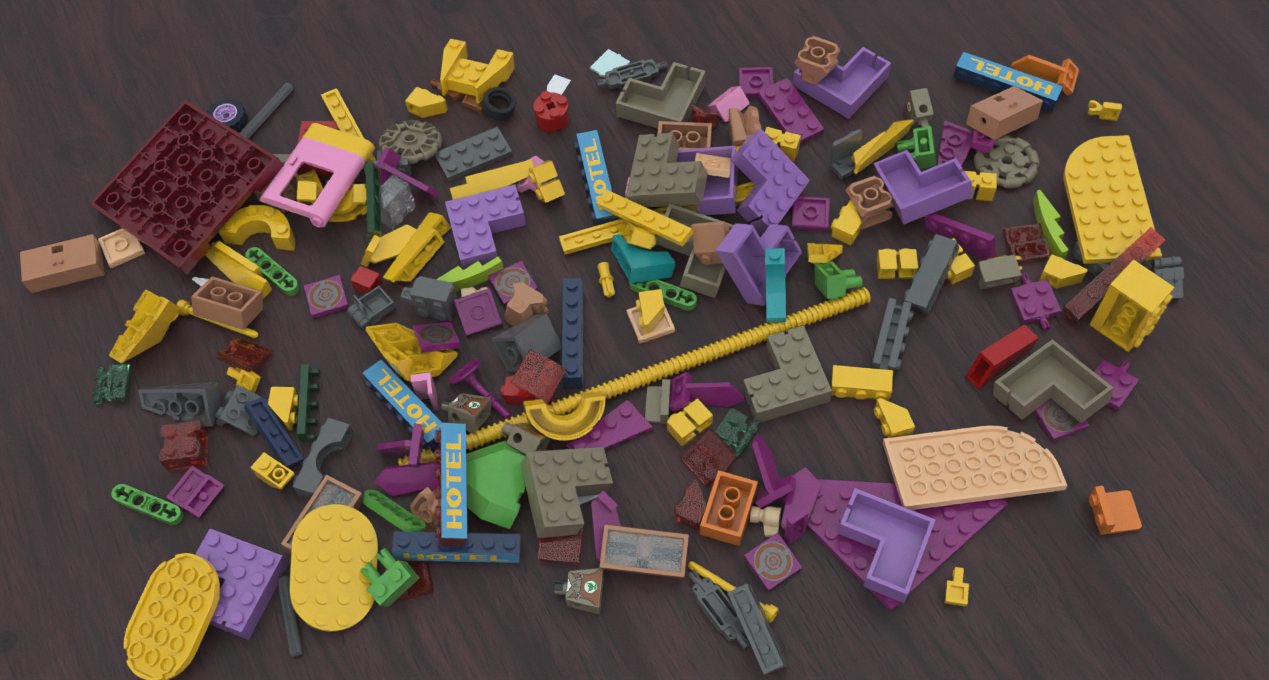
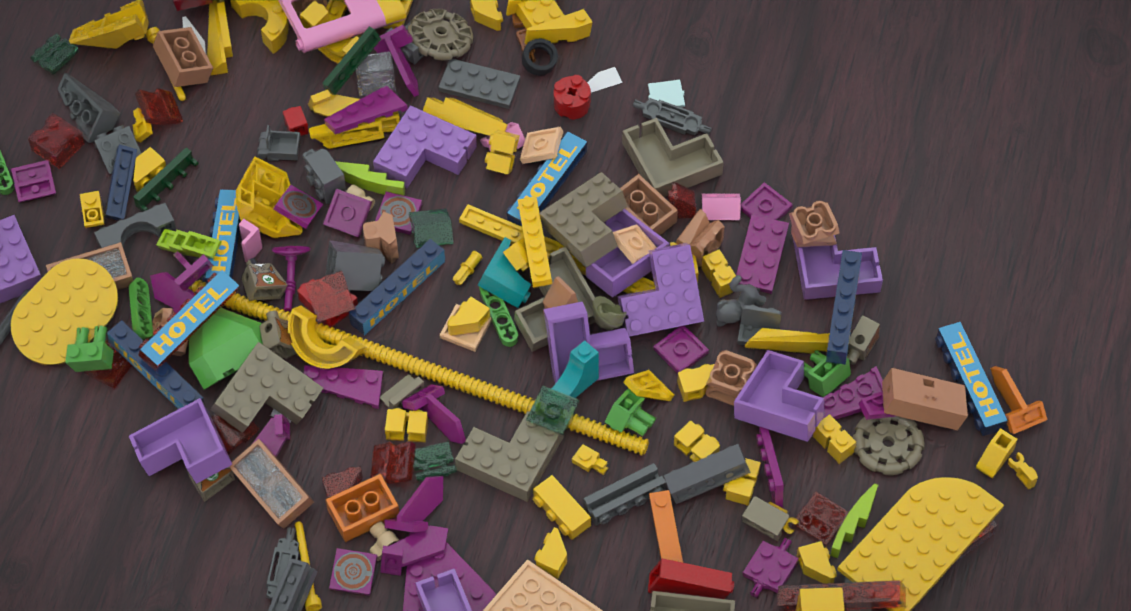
camera: 40 degrees right, 0 degrees up
(272, 271) = (241, 57): bright green beam -> none
(326, 296) = (258, 109): tile -> none
(382, 431) = (188, 243): none -> lime slope
(415, 229) = (377, 104): none -> magenta wing
(540, 572) = (182, 435): none -> medium lavender piece
(549, 273) = (431, 225): none -> clear green slope
(567, 157) = (541, 145): none -> light nougat tile
(757, 221) = (607, 314): none -> olive piece
(787, 319) = (553, 410): none -> clear green slope
(820, 156) = (731, 310): none -> dark grey animal
(837, 337) = (588, 458): none -> yellow plate
(894, 94) = (844, 307): none -> dark blue brick
(946, 335) = (665, 526): none -> orange plate
(1079, 111) = (996, 453): none -> yellow slope

